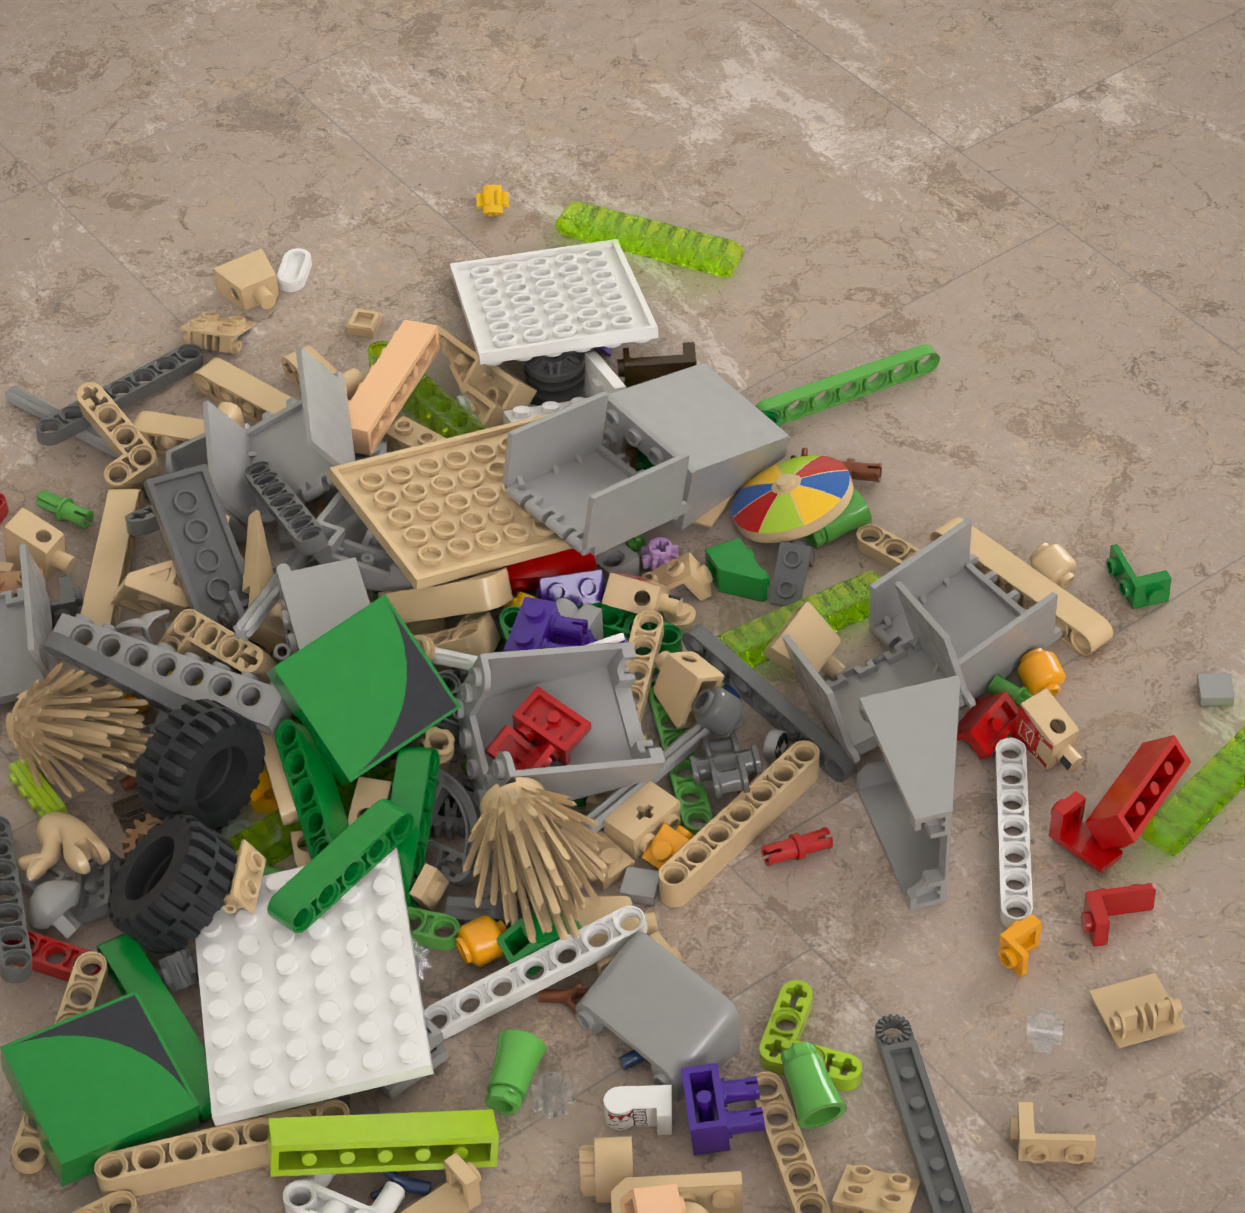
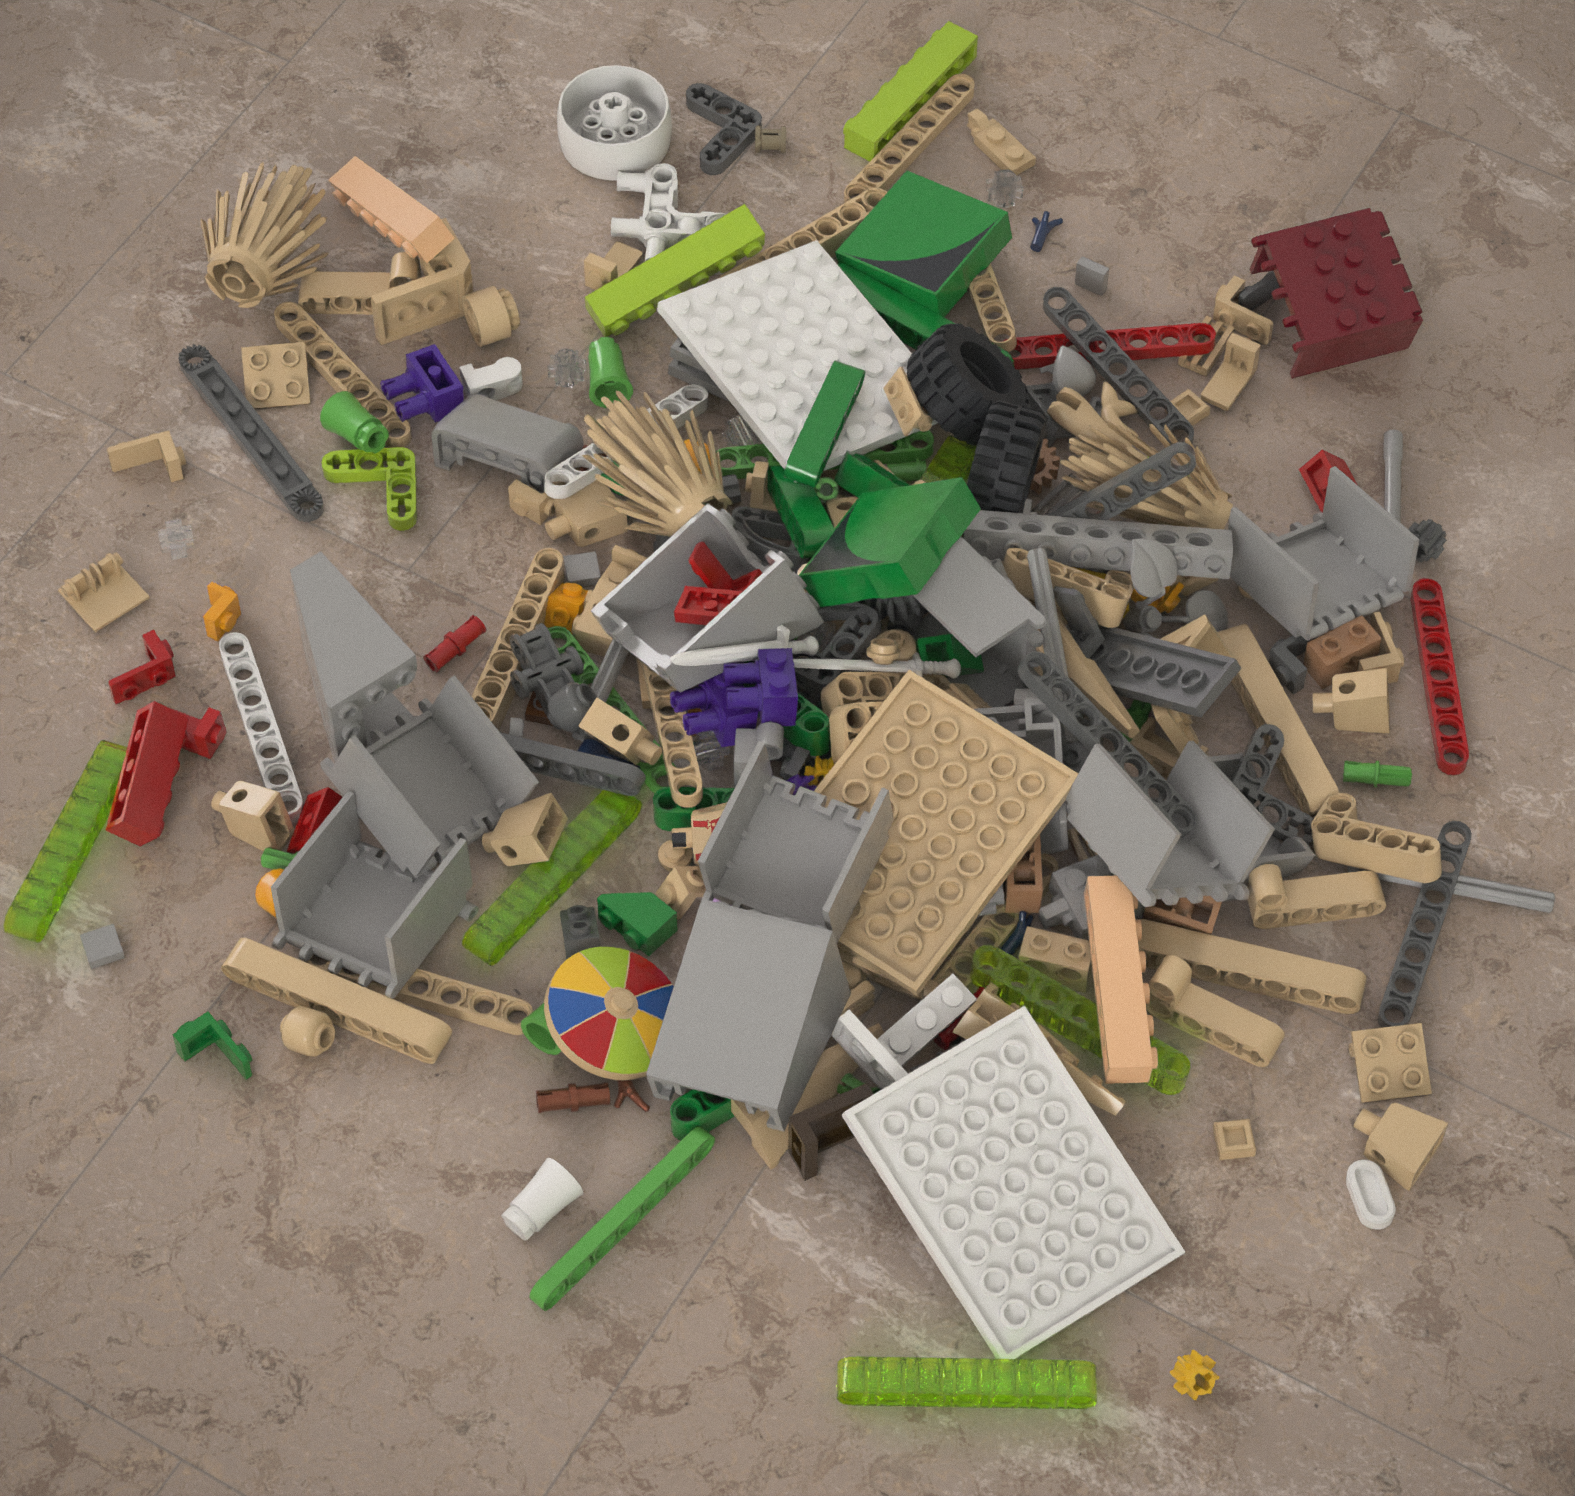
camera: 155 degrees right, 10 degrees up
(904, 407) = (541, 1199): none -> white plant

